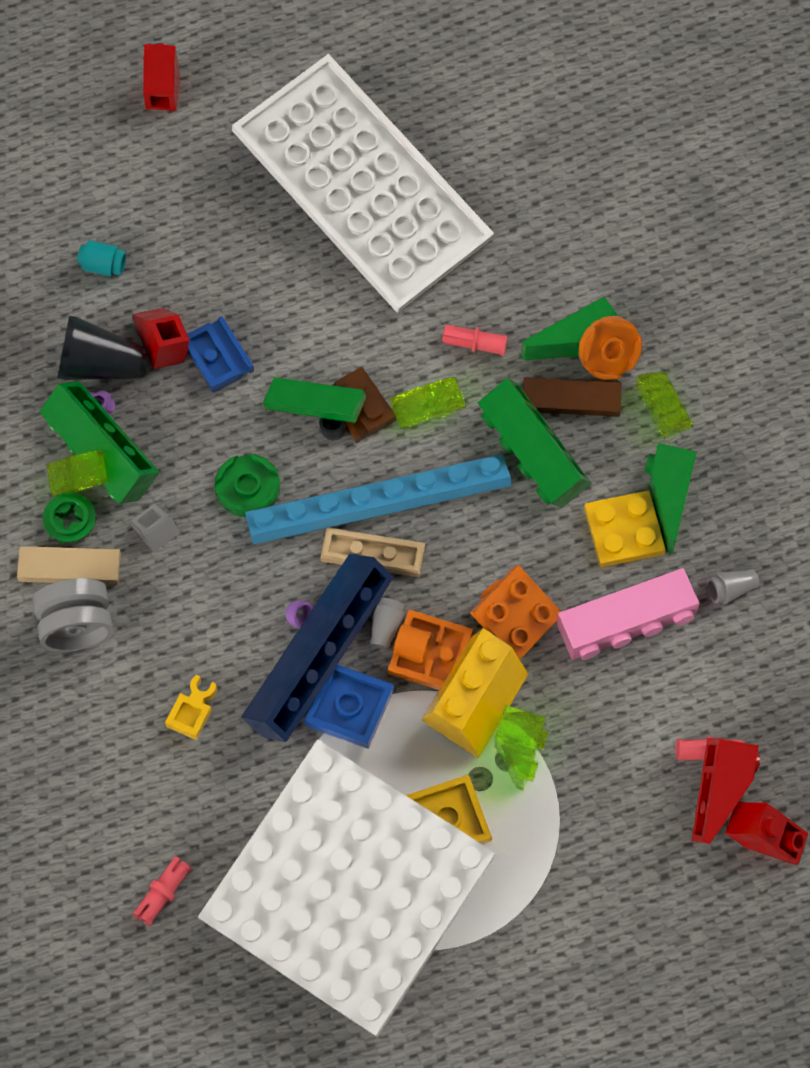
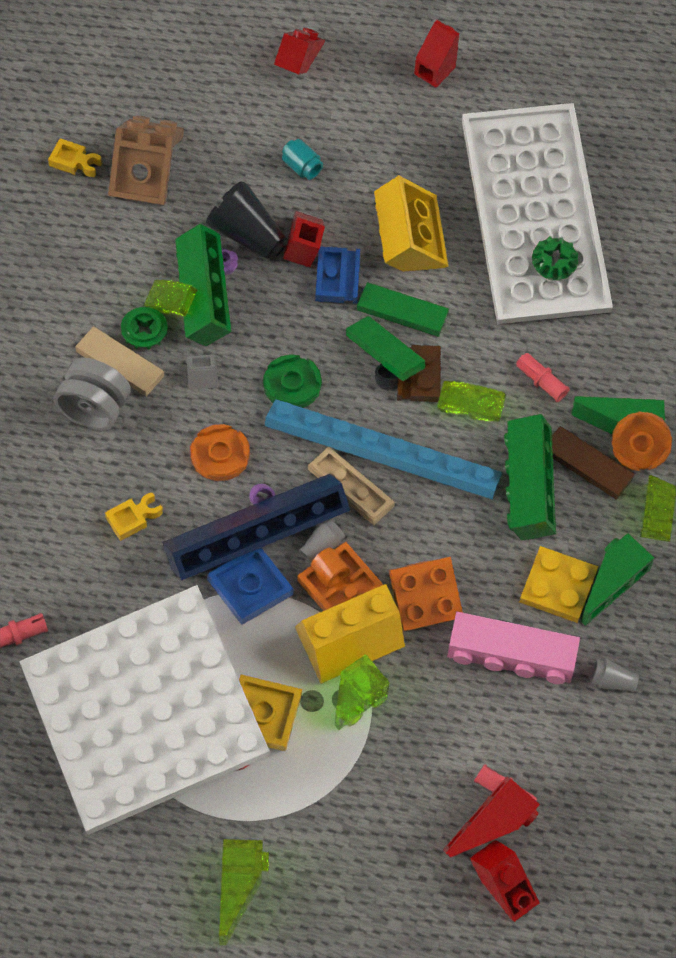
camera: 30 degrees right, 5 degrees down
(21, 149) = (298, 50): none -> red slope
(237, 600) = (220, 462): none -> orange tile
(252, 266) = (410, 226): none -> yellow slope
(300, 351) = (402, 309): none -> green tile
(405, 228) = (543, 262): none -> green gear
(534, 981) = (240, 880): none -> clear neon green slope

